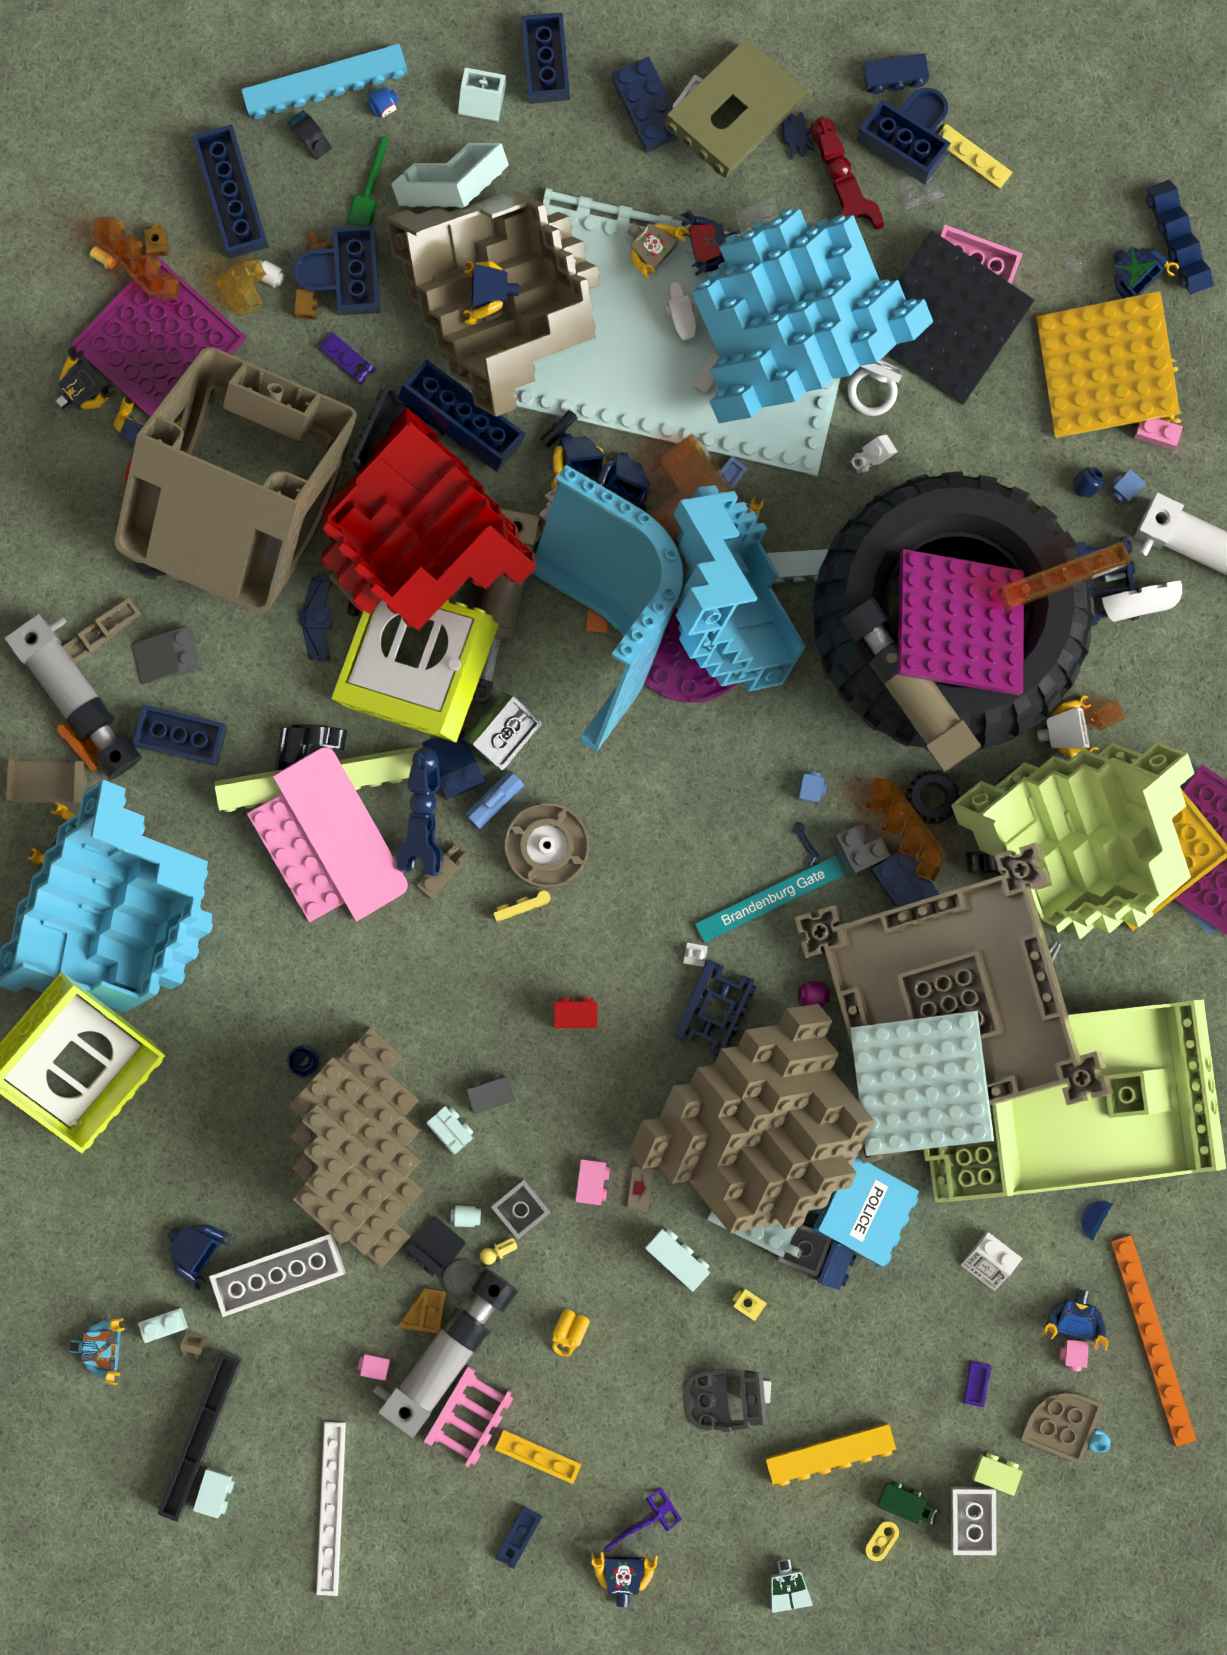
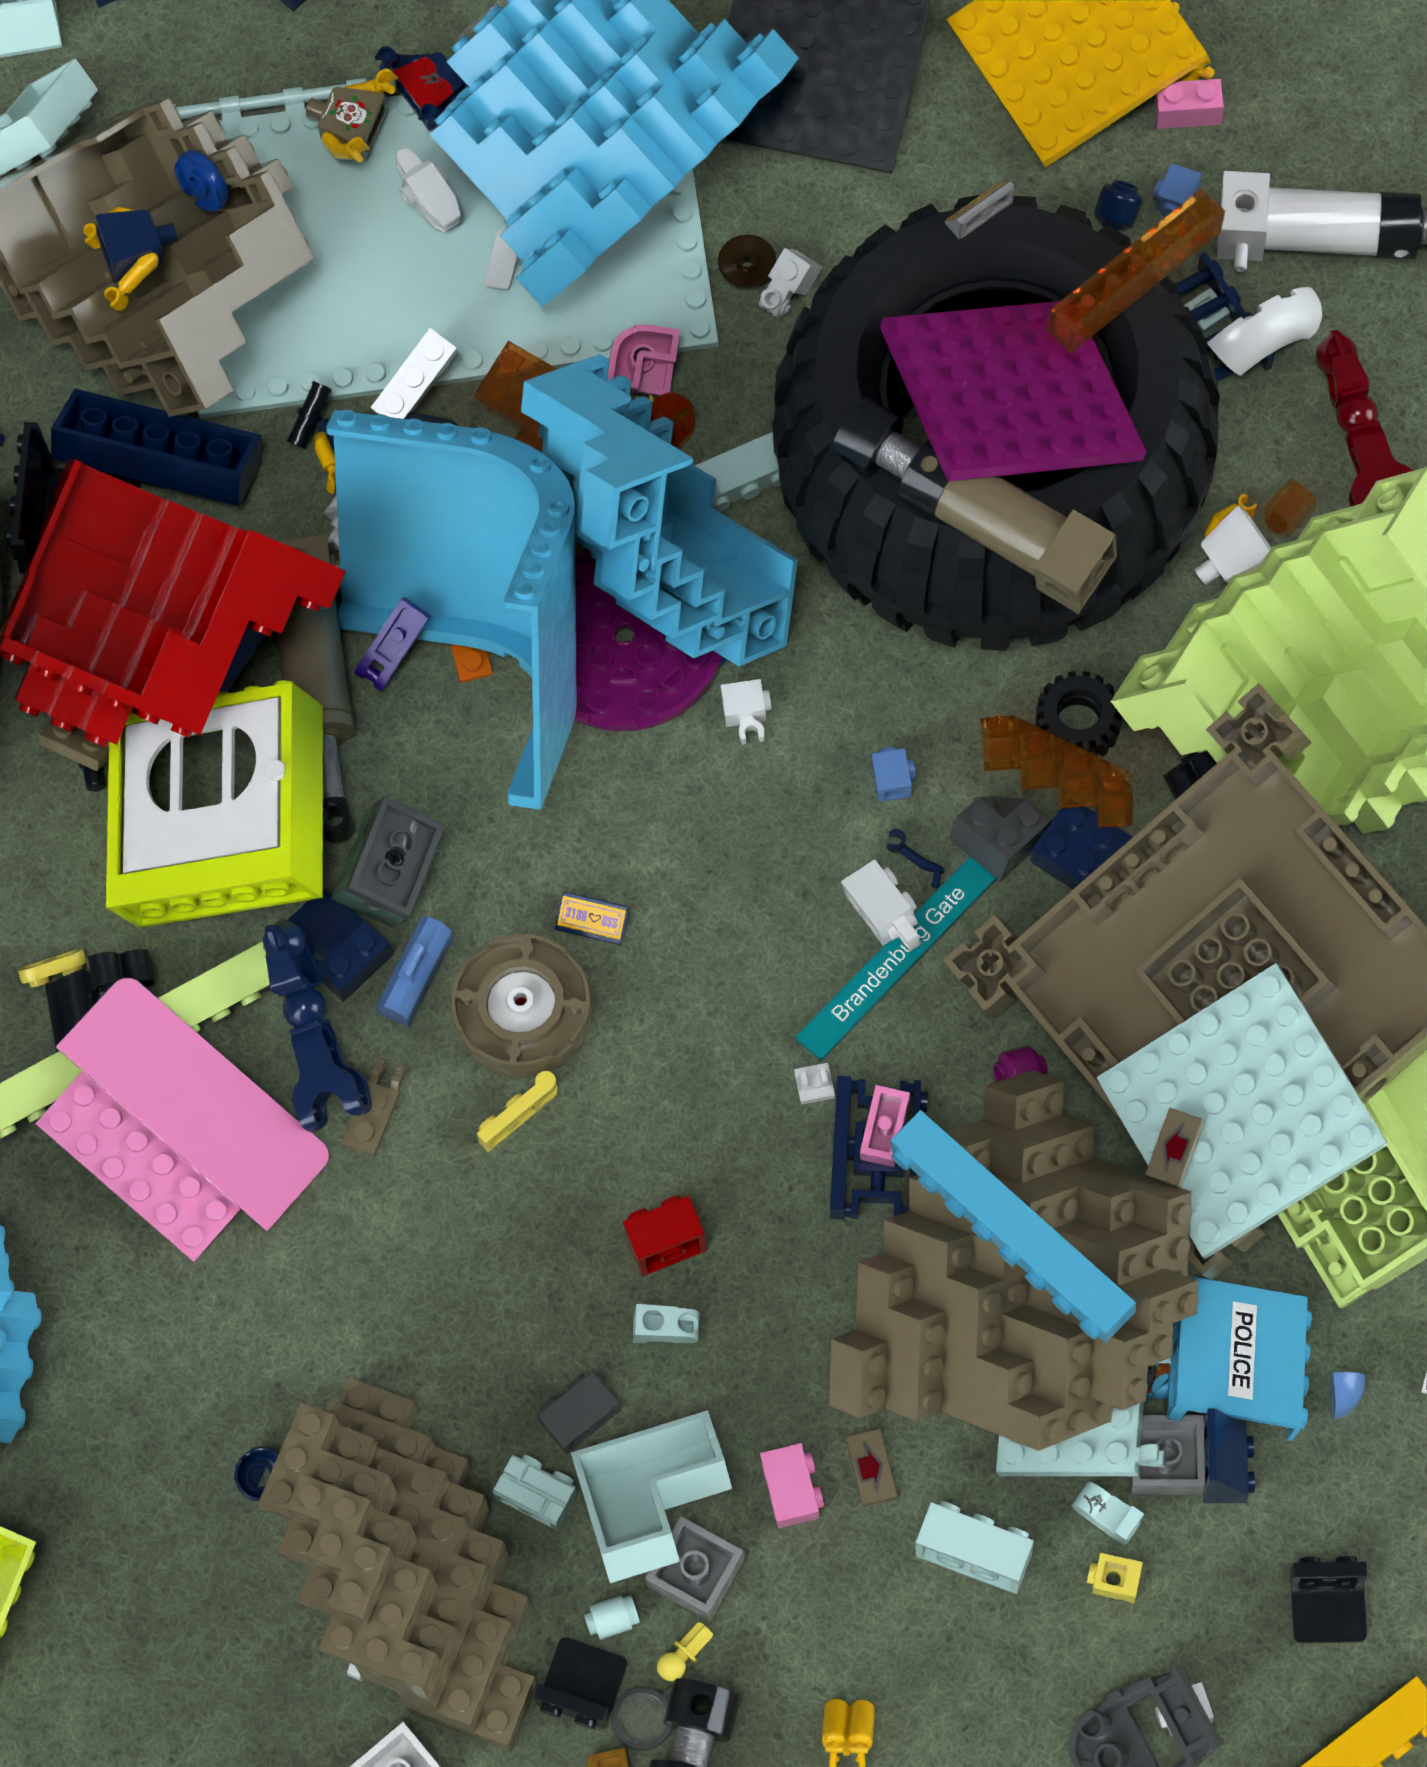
camera: 20 degrees left, 15 degrees down
(295, 715) = (39, 972): none -> light yellow plate
(316, 618) = (42, 813): dark blue plate -> none
(506, 1148) = (637, 1479): none -> light aqua piece
(549, 265) = (202, 180): none -> blue tile
(555, 595) = (393, 643): none -> plate
(557, 1063) = (665, 1324): none -> light aqua leg
(607, 807) = (592, 918): none -> slope
(628, 432) = (415, 376): none -> white brick
(722, 1002) = (884, 1121): none -> bright pink brick
(744, 712) = (746, 706): none -> white brick
(759, 1265) = (1108, 1512): none -> light aqua leg
(763, 1108) = (1012, 1227): none -> medium azure brick
(767, 473) = (646, 358): none -> bright pink brick
(771, 515) = (680, 411): none -> clear orange piece
(774, 866) = (882, 905): none -> white hinge
(859, 1363) = (1328, 1600): none -> black bracket
(860, 423) = (742, 250): none -> dark brown piece
(876, 1090) = (1175, 1147): none -> dark tan tile
(880, 371) = (751, 166): white tile -> none
(917, 1252) = (1345, 1392): none -> medium blue brick
(990, 495) = (981, 209): none -> light grey slope
(1171, 689) = (1356, 415): none -> dark red piece

